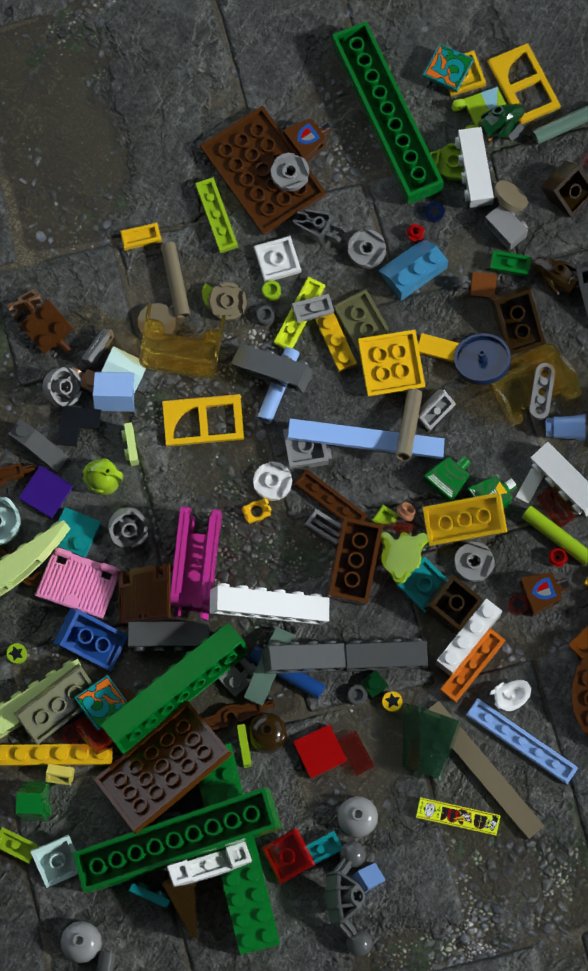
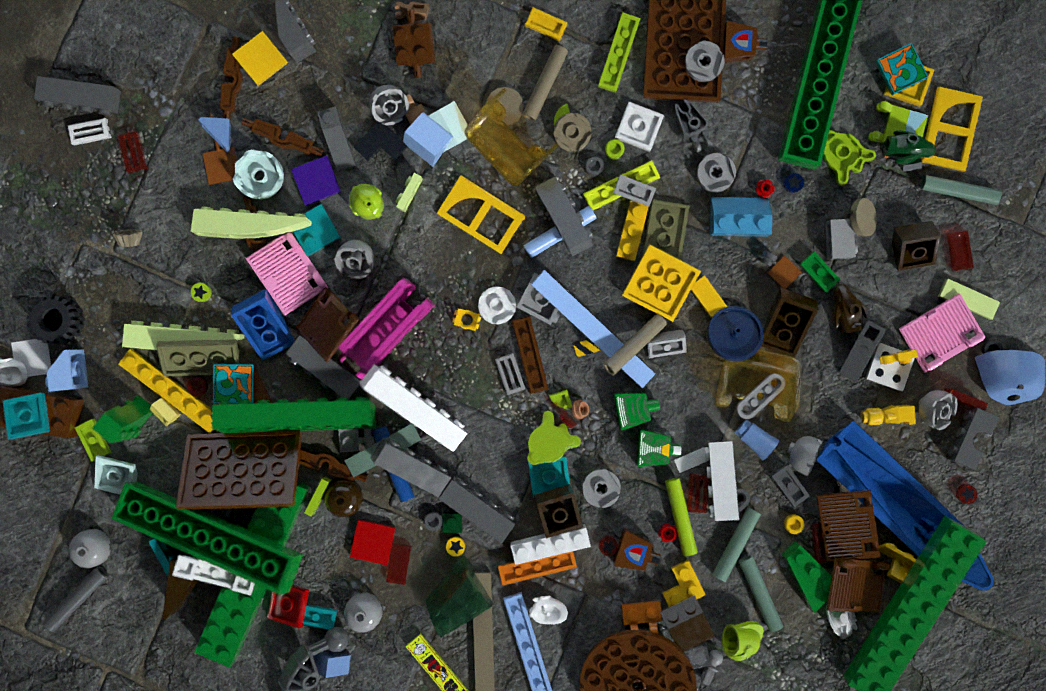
camera: 35 degrees right, 15 degrees up
(97, 740) = (206, 401): clear red tile -> none
(98, 347) = (443, 92): light grey slope -> none
(354, 561) = (508, 420): reddish brown brick -> none
(372, 460) = (585, 347): none -> sticker
(465, 519) = (619, 453): yellow plate -> none
(475, 167) = (855, 171): white brick -> none

